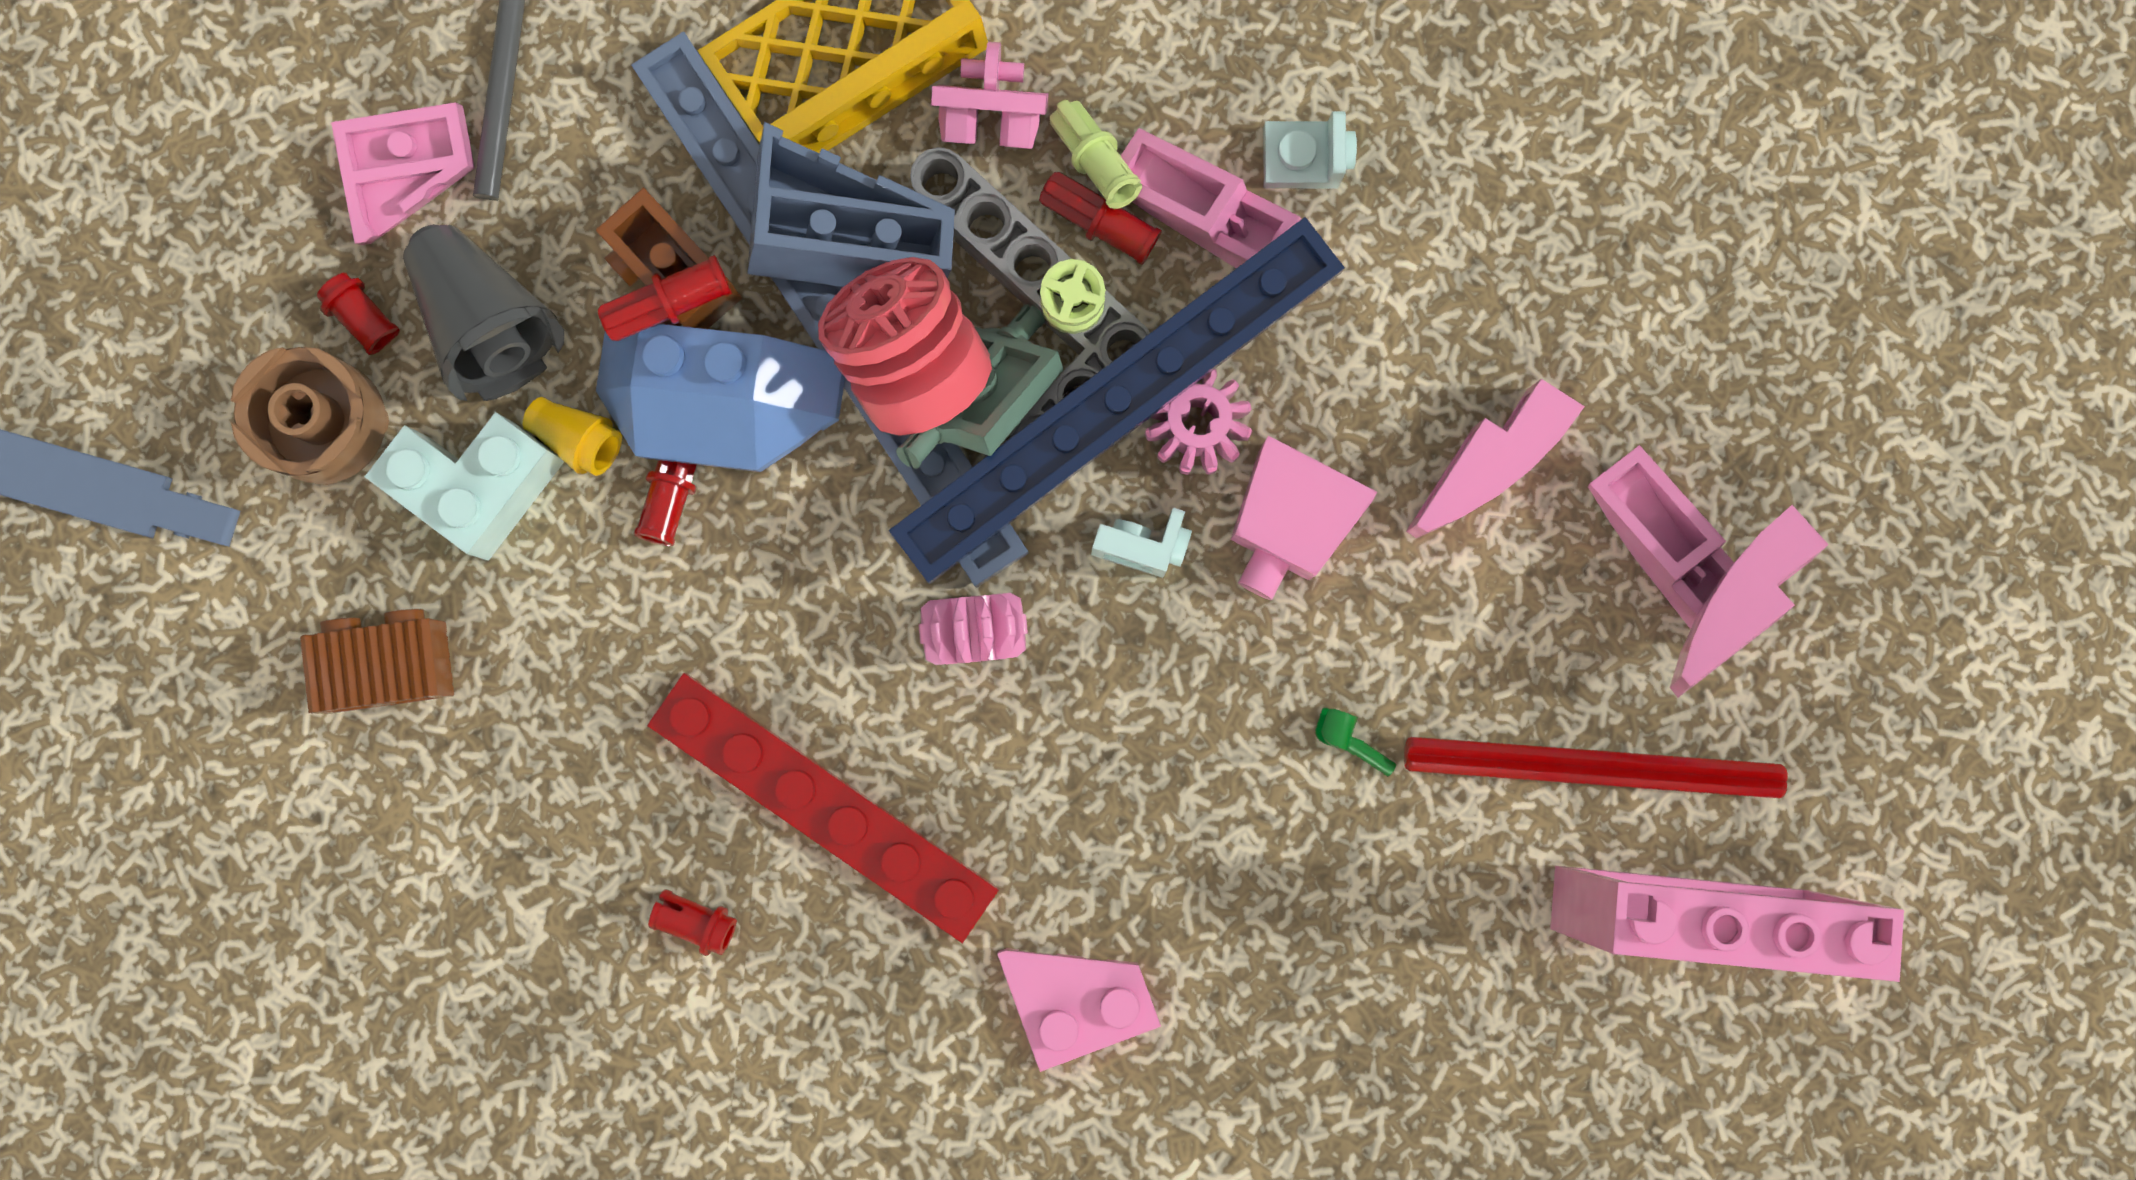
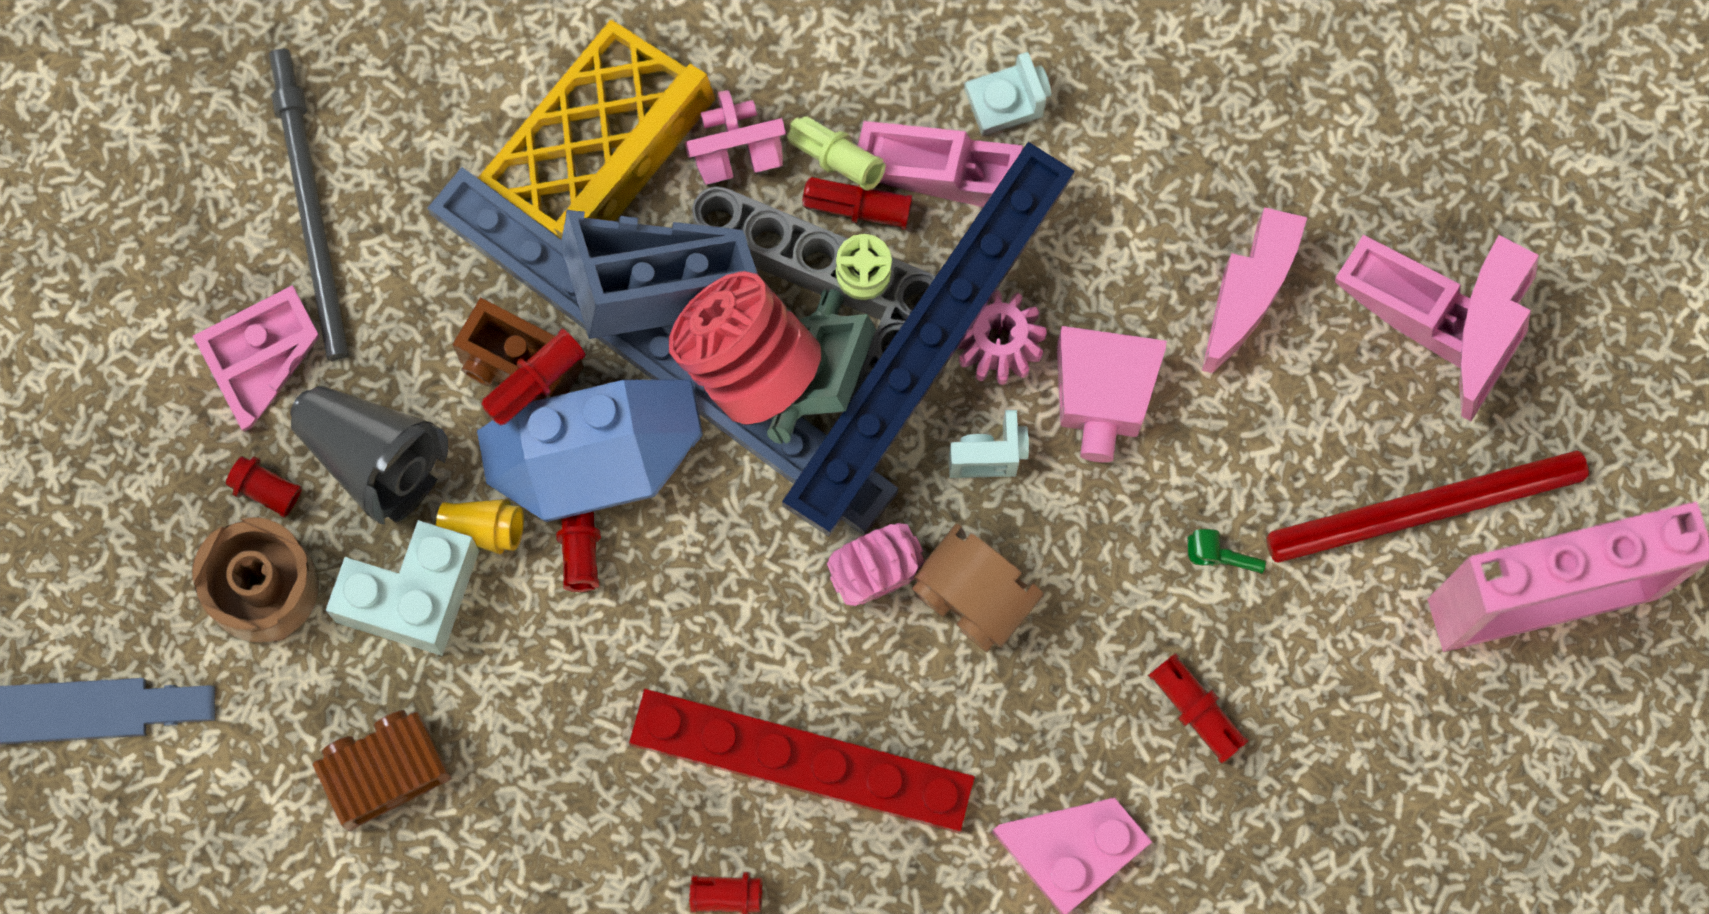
camera: 20 degrees left, 10 degrees down
(1068, 694) = (976, 587): none -> medium nougat brick
(1263, 901) = (1198, 708): none -> red pin

